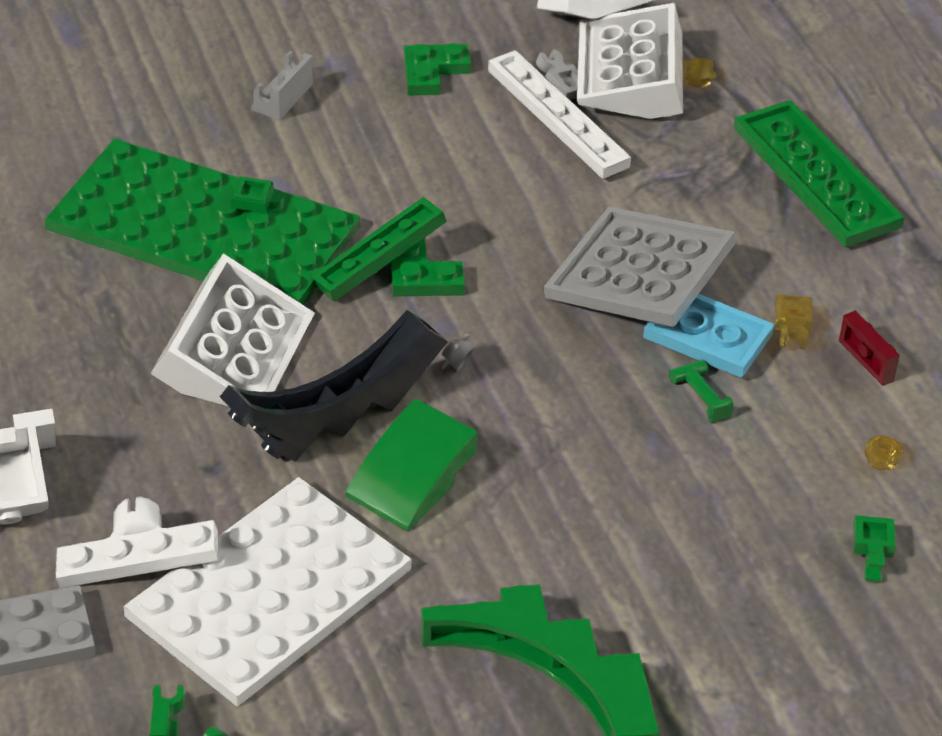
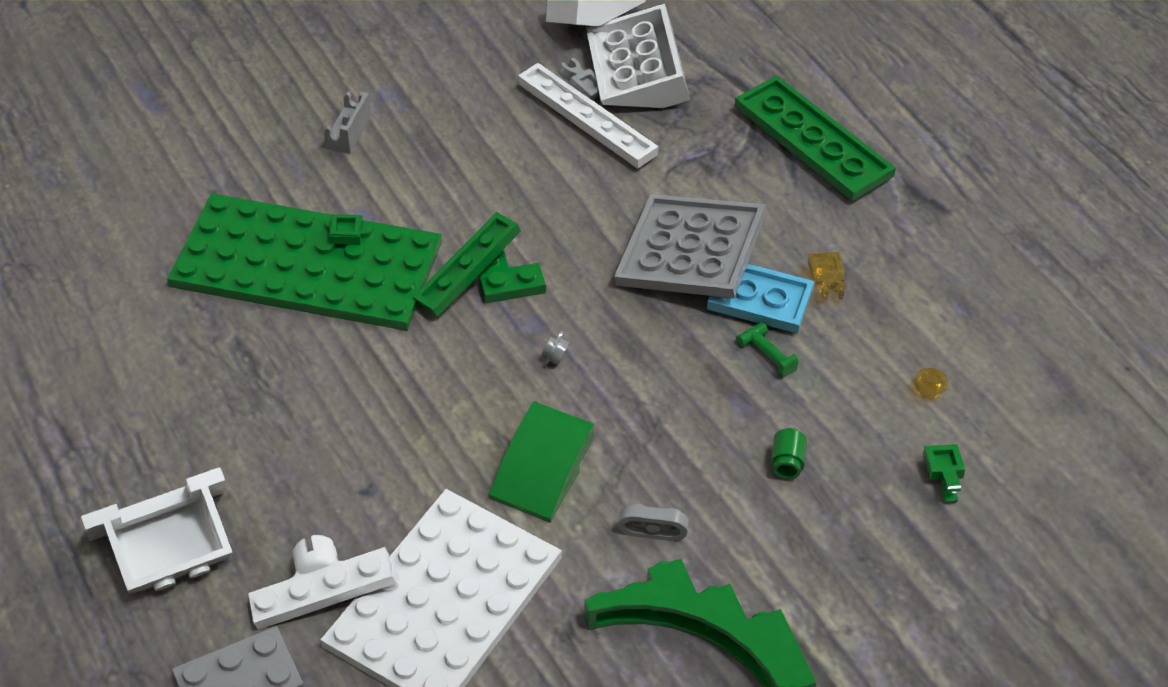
camera: 10 degrees left, 5 degrees up
(233, 335) = (359, 368): white slope -> none
(380, 375) = (495, 385): black arch -> none
(426, 62) = (465, 83): green plate -> none
(521, 546) = (653, 522): none -> light grey plate
(695, 499) = (788, 453): none -> green brick
(699, 71) = (694, 60): clear yellow plate -> none
(869, 347) = (896, 290): dark red plate -> none

